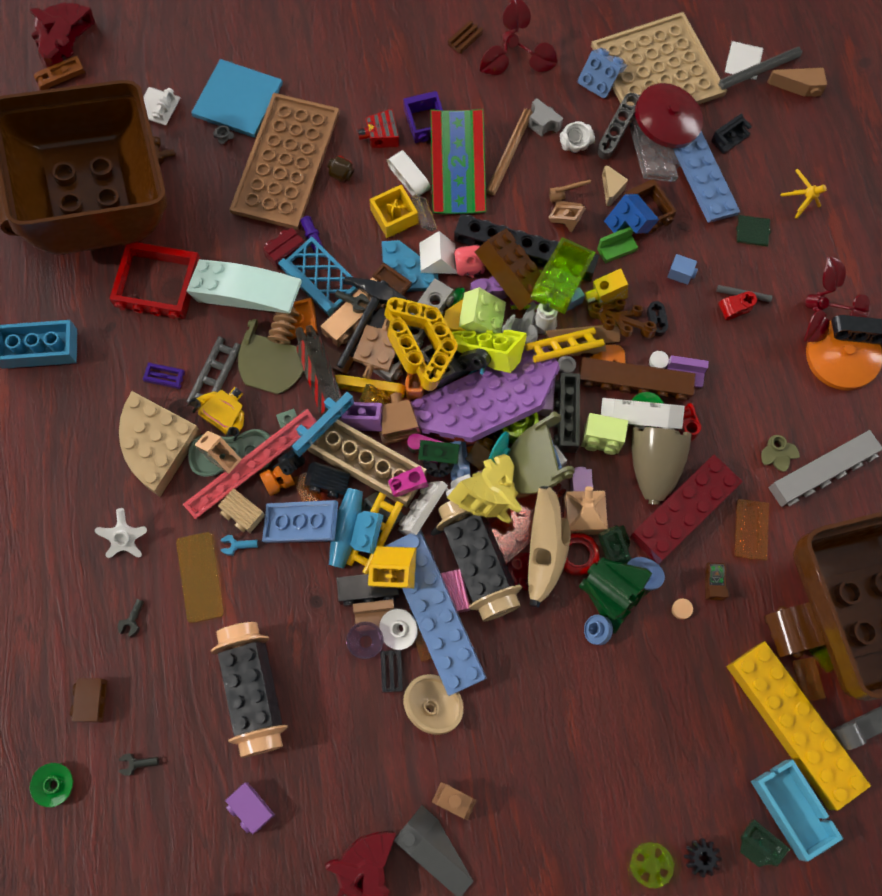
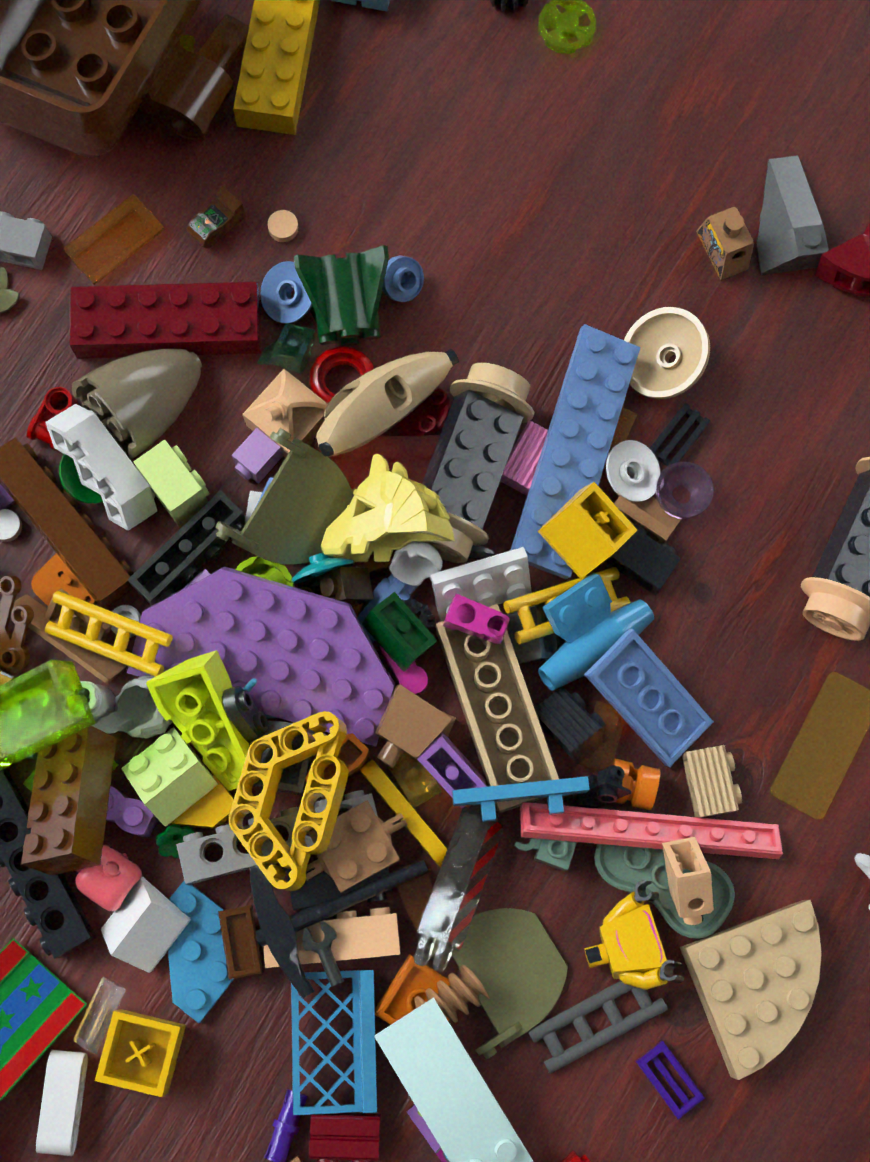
camera: 140 degrees left, 5 degrees up
(237, 544) = (749, 746): dark azure bar -> none

